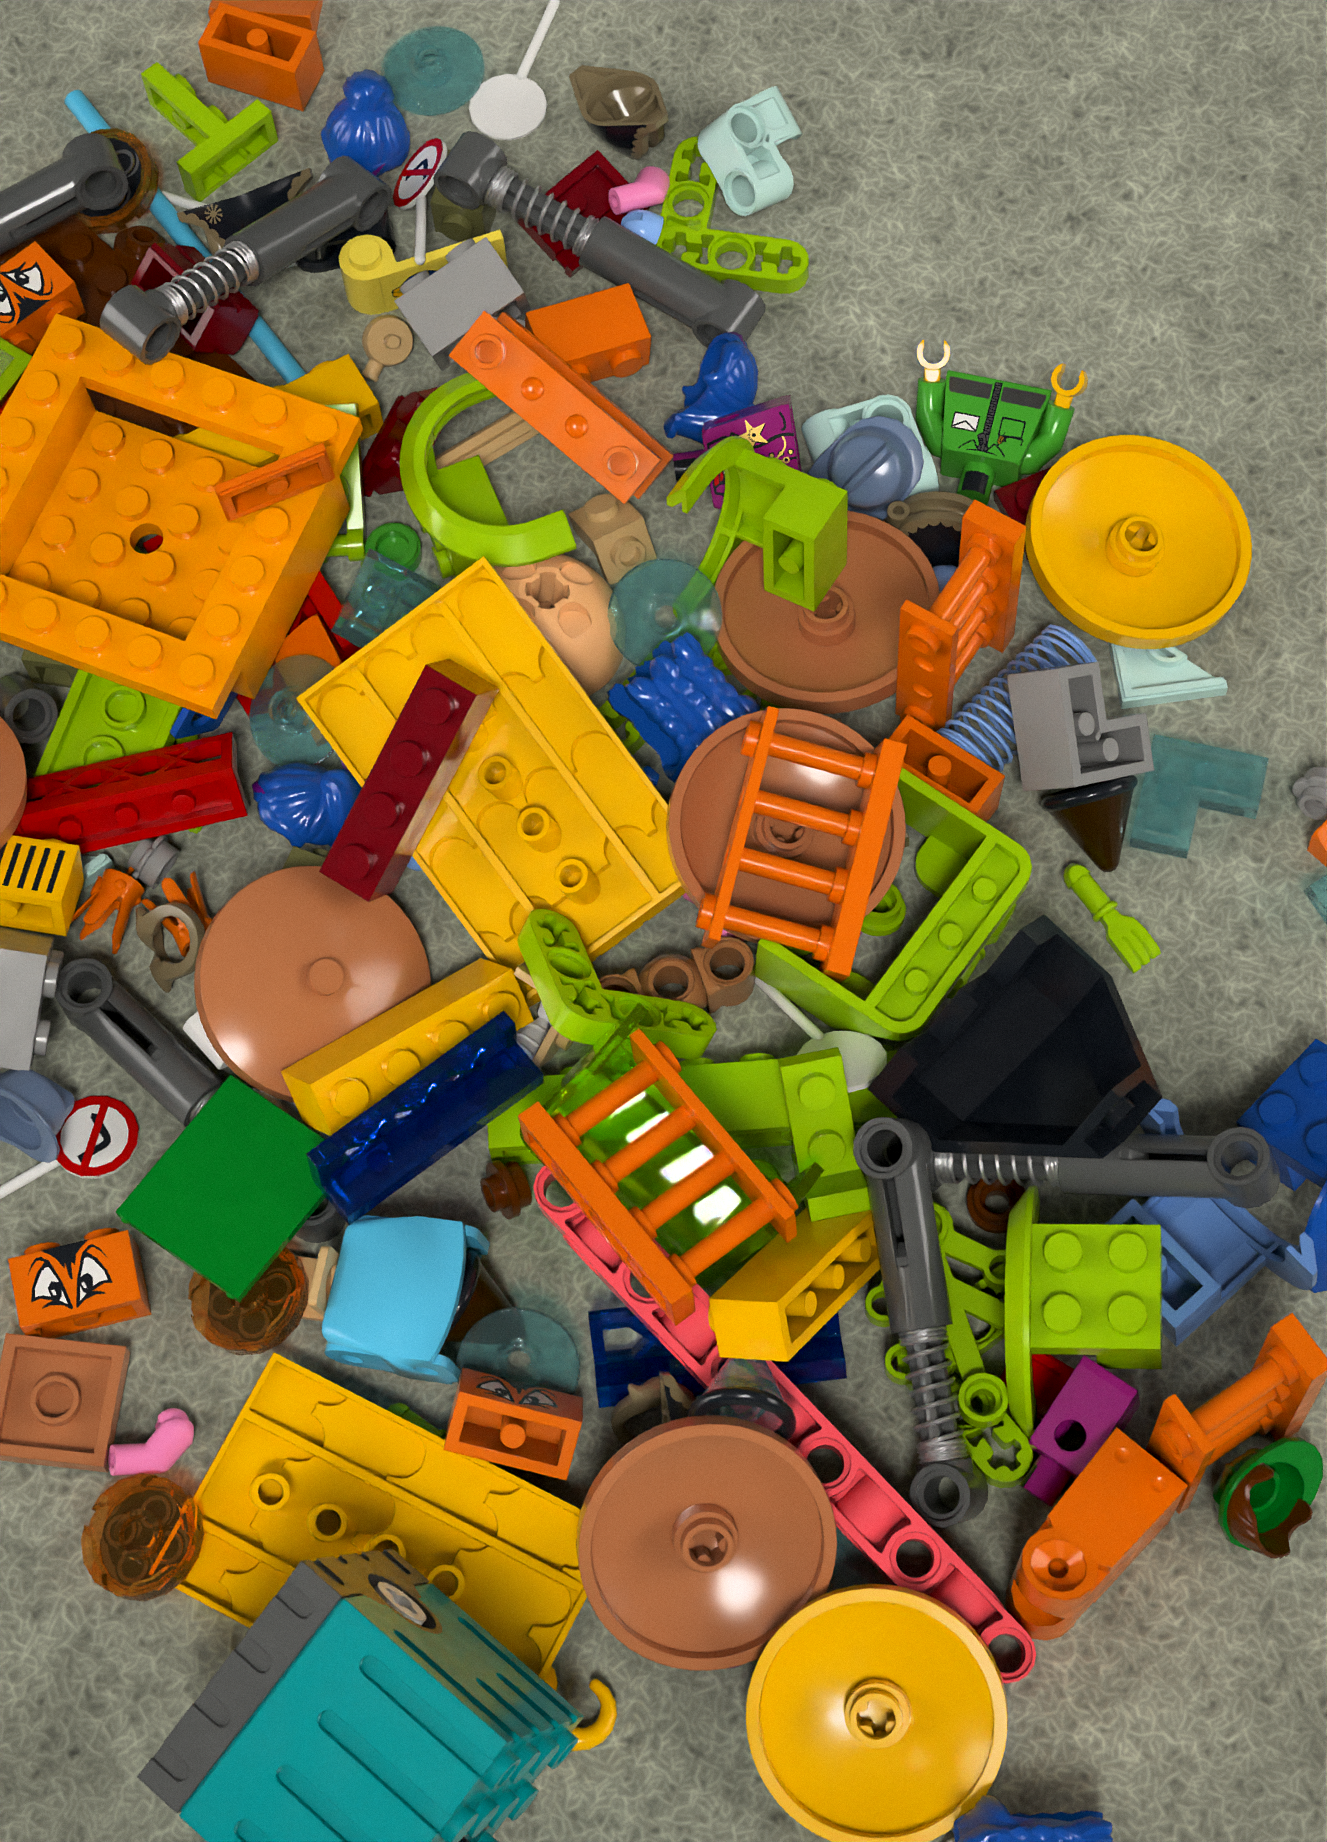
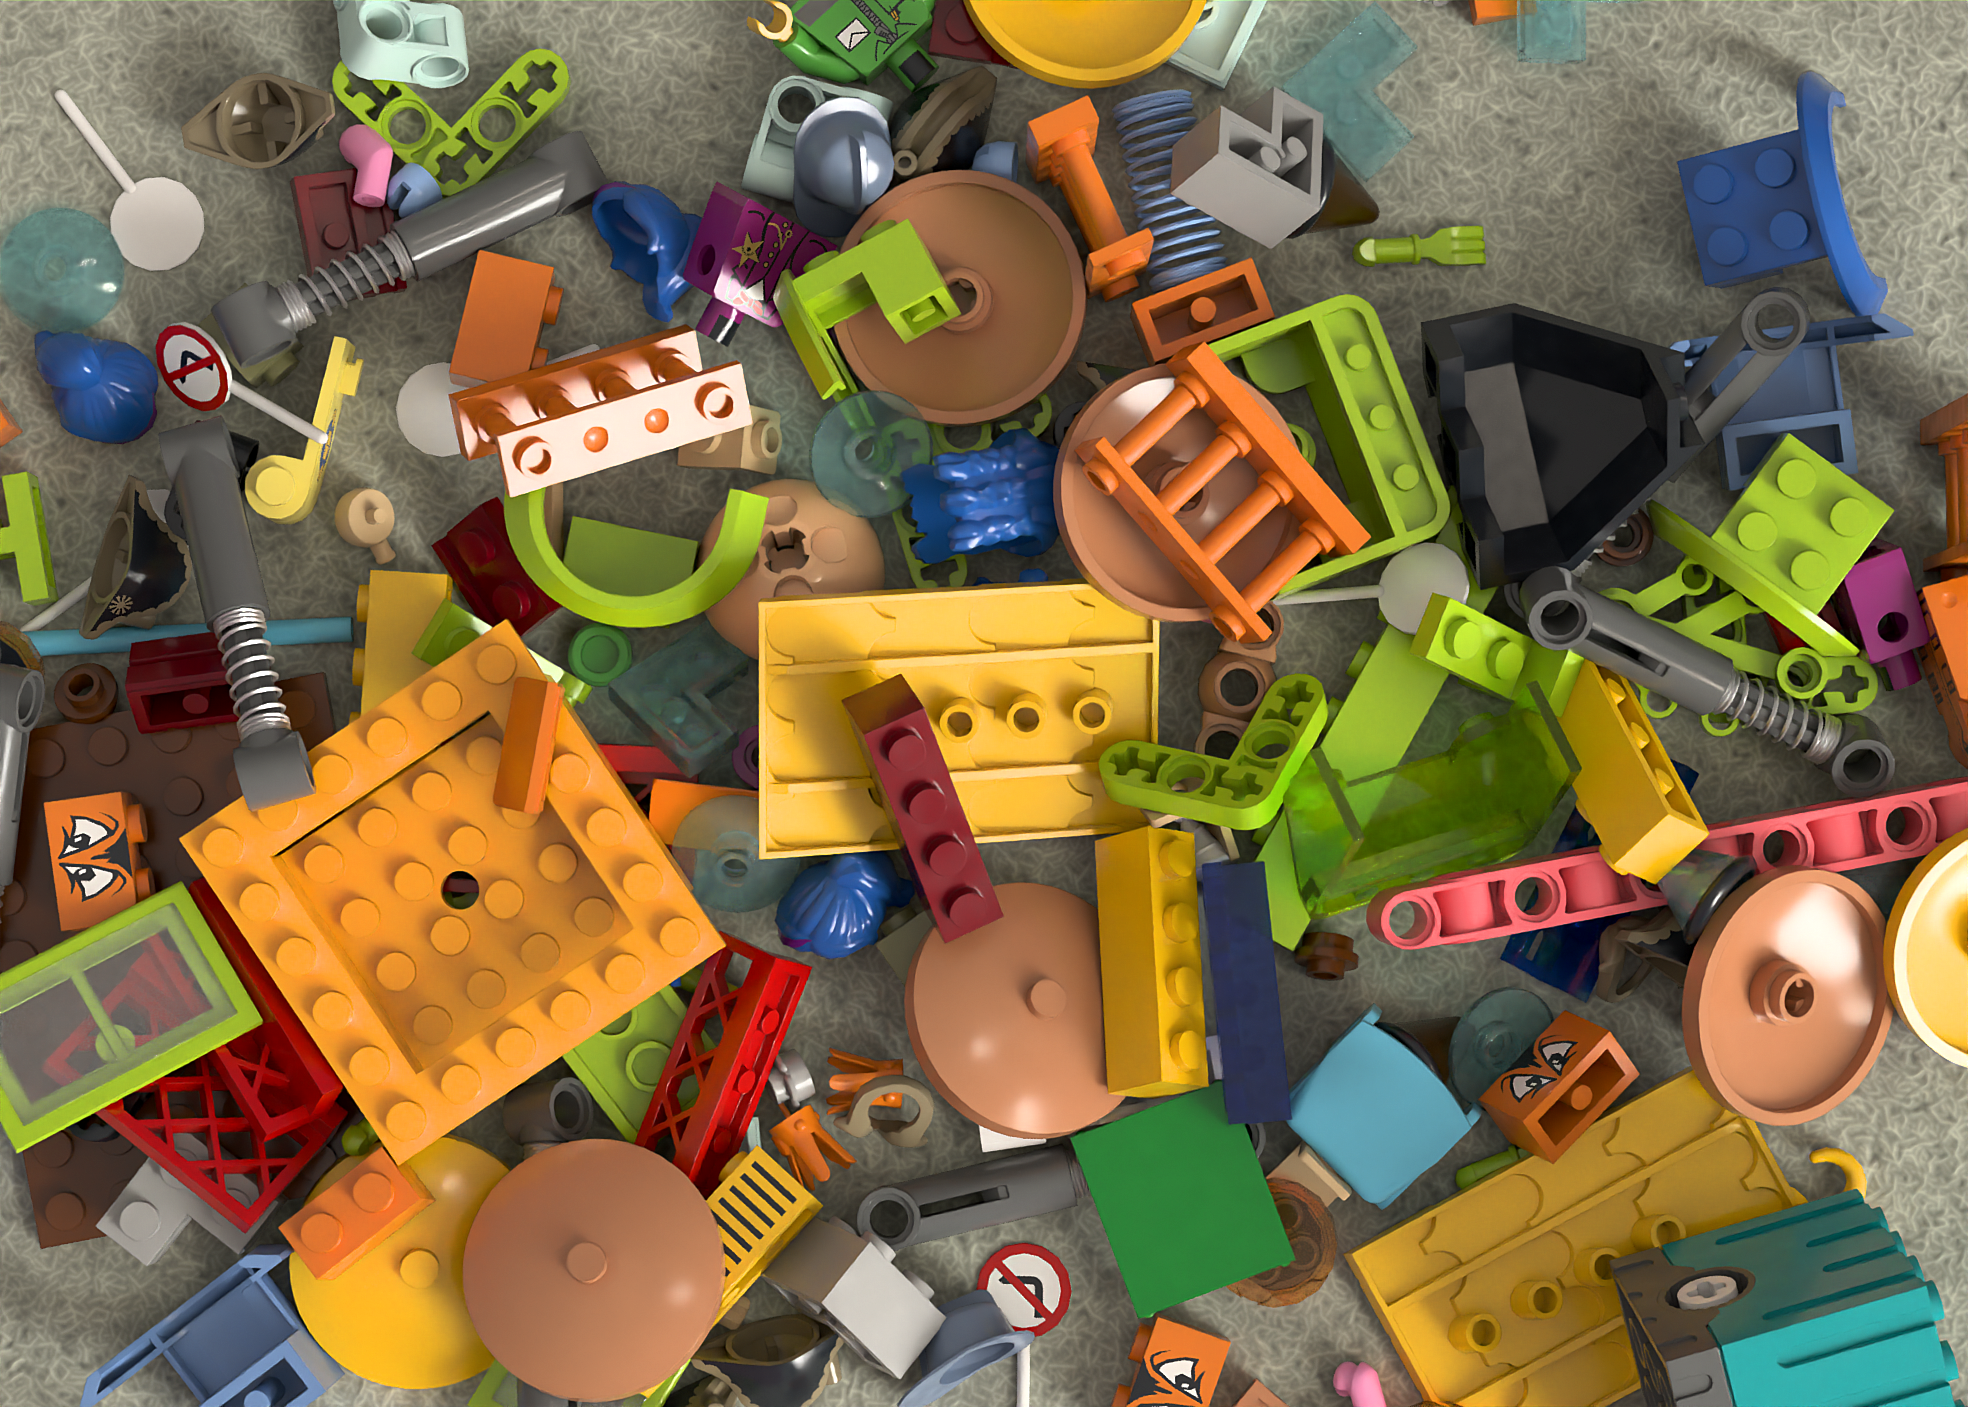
camera: 65 degrees left, 20 degrees up
(453, 298) = (401, 428): light grey brick -> none
(632, 1230) = (1507, 886): orange fence -> none

